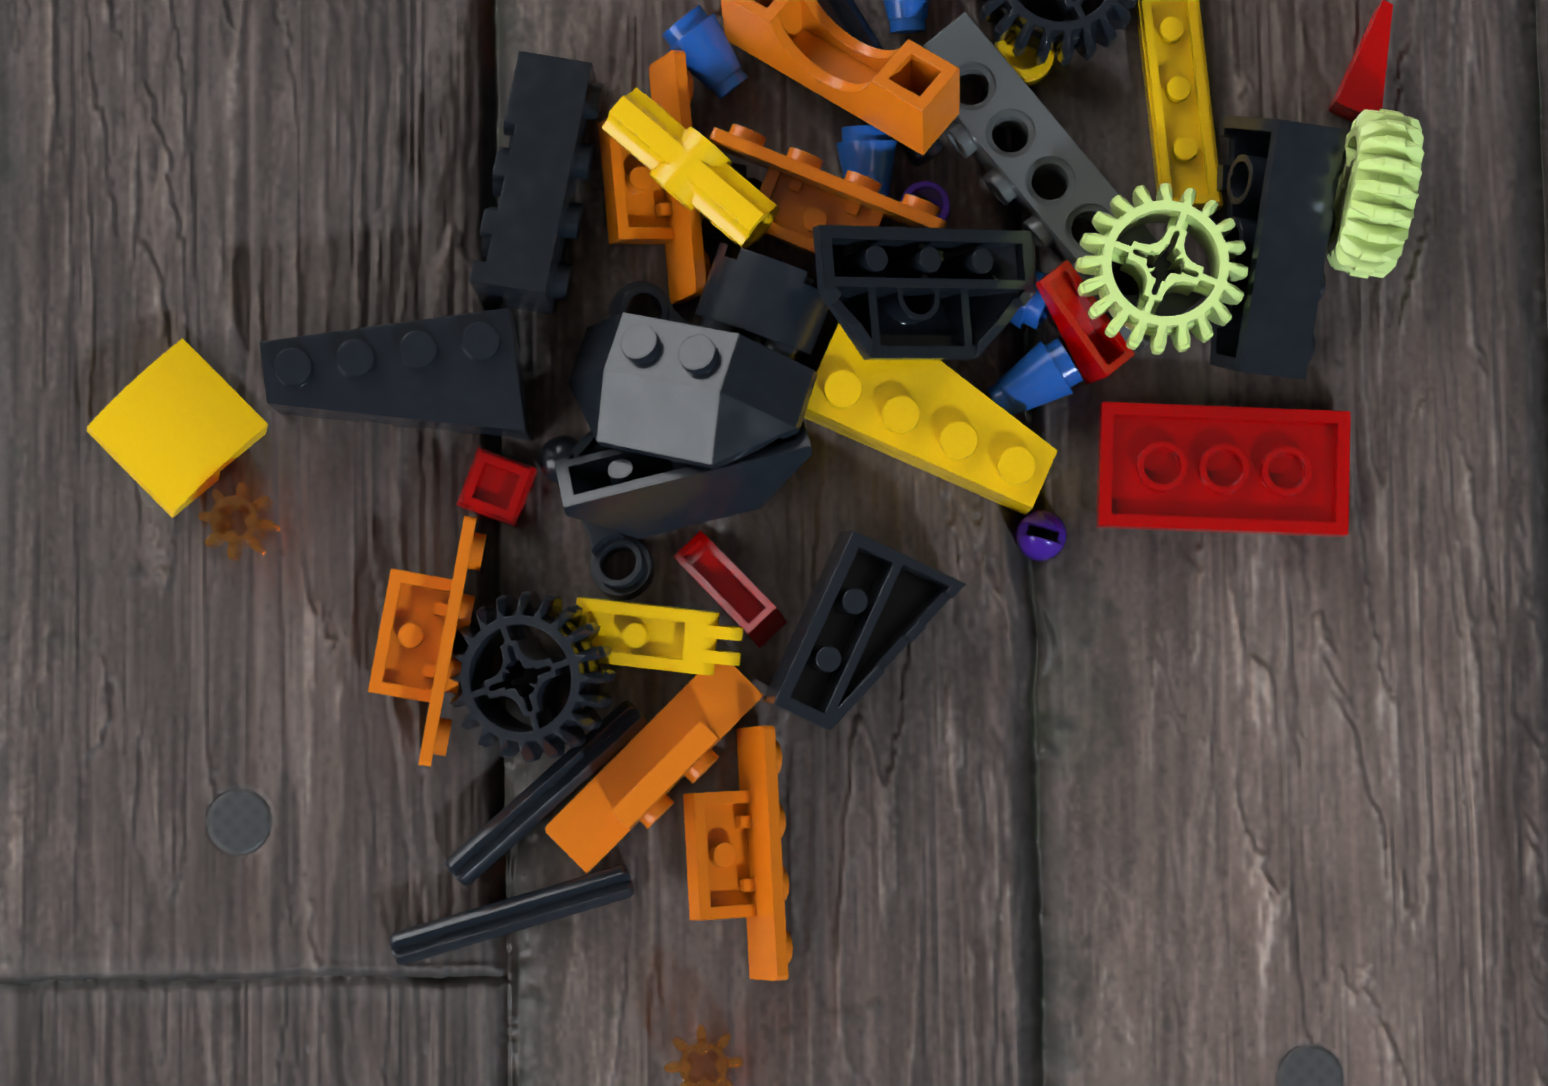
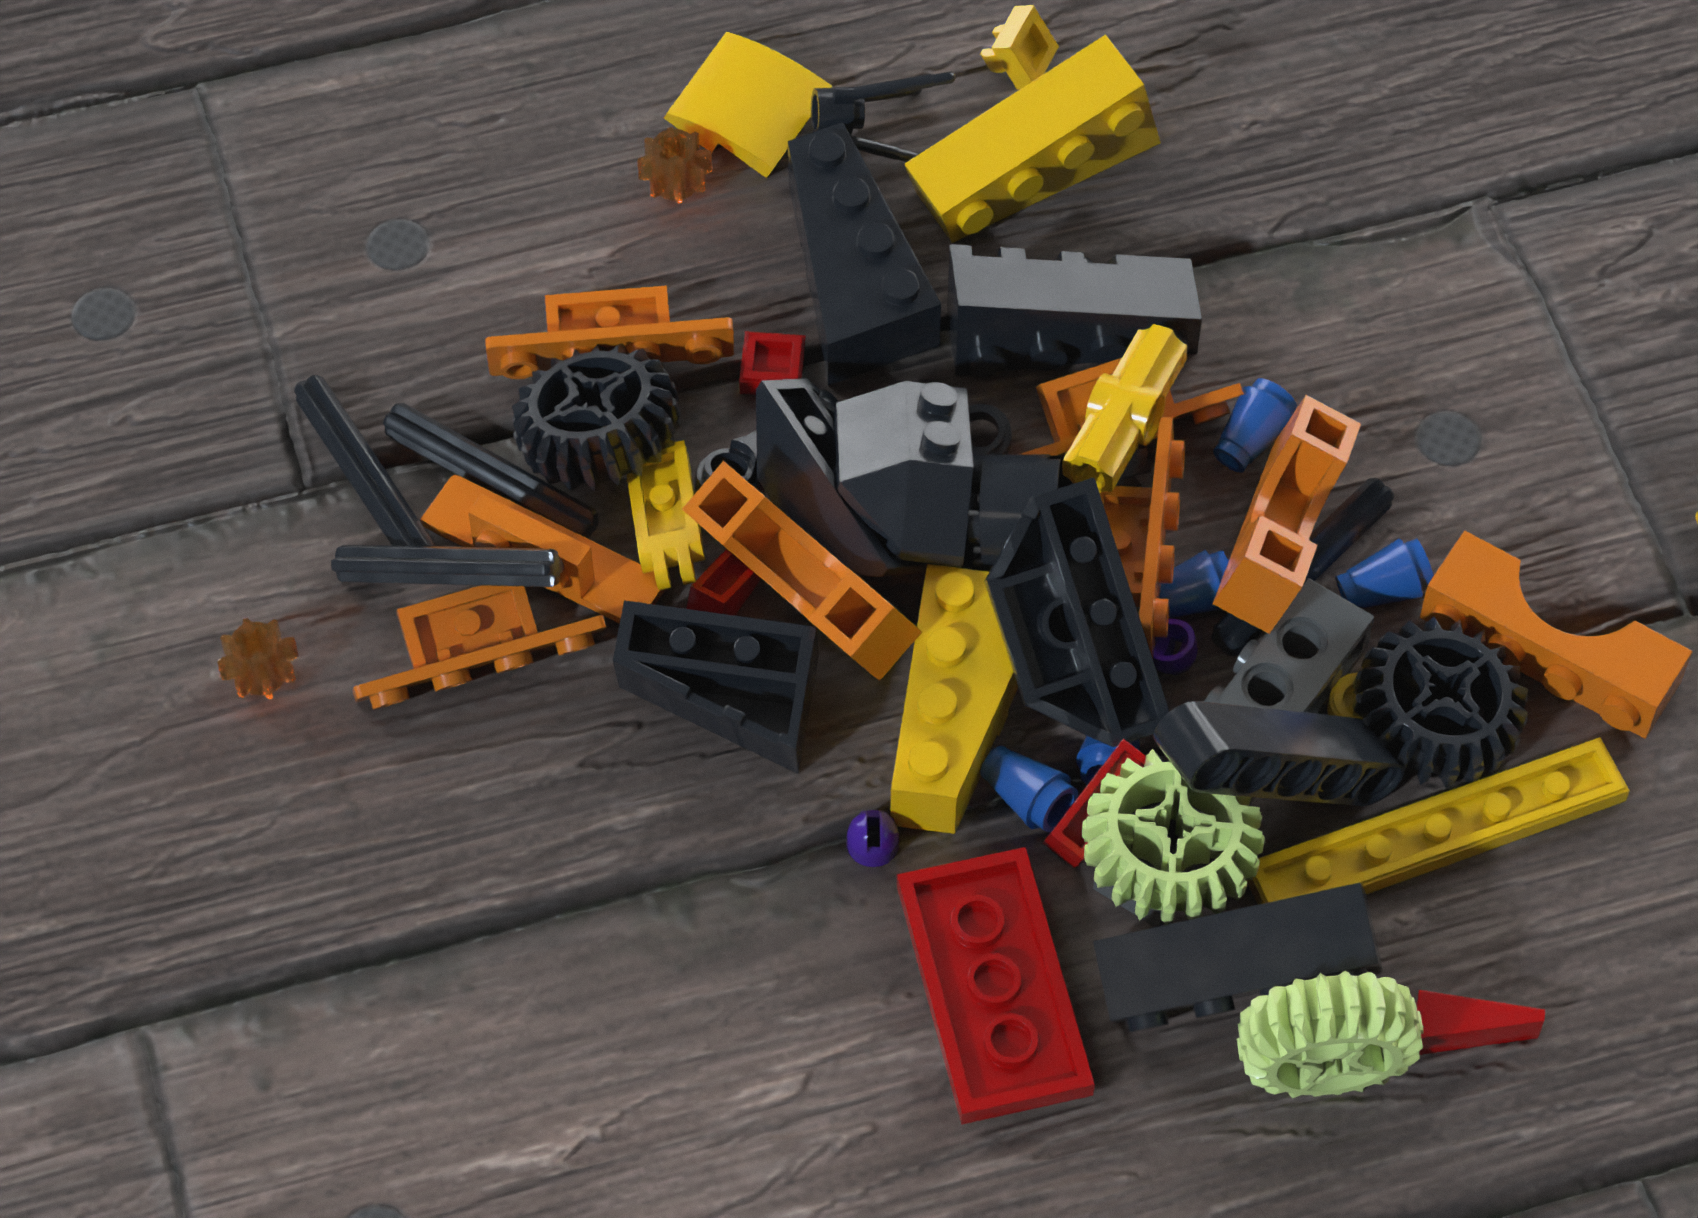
camera: 75 degrees right, 25 degrees down
(196, 134) = (1021, 47): none -> yellow tile
(228, 341) = (847, 105): none -> black plant
(329, 160) = (1037, 142): none -> yellow wedge
(665, 860) = (448, 565): none -> black axle
(830, 499) = (802, 571): none -> orange arch
(1119, 150) = (1277, 754): none -> black beam

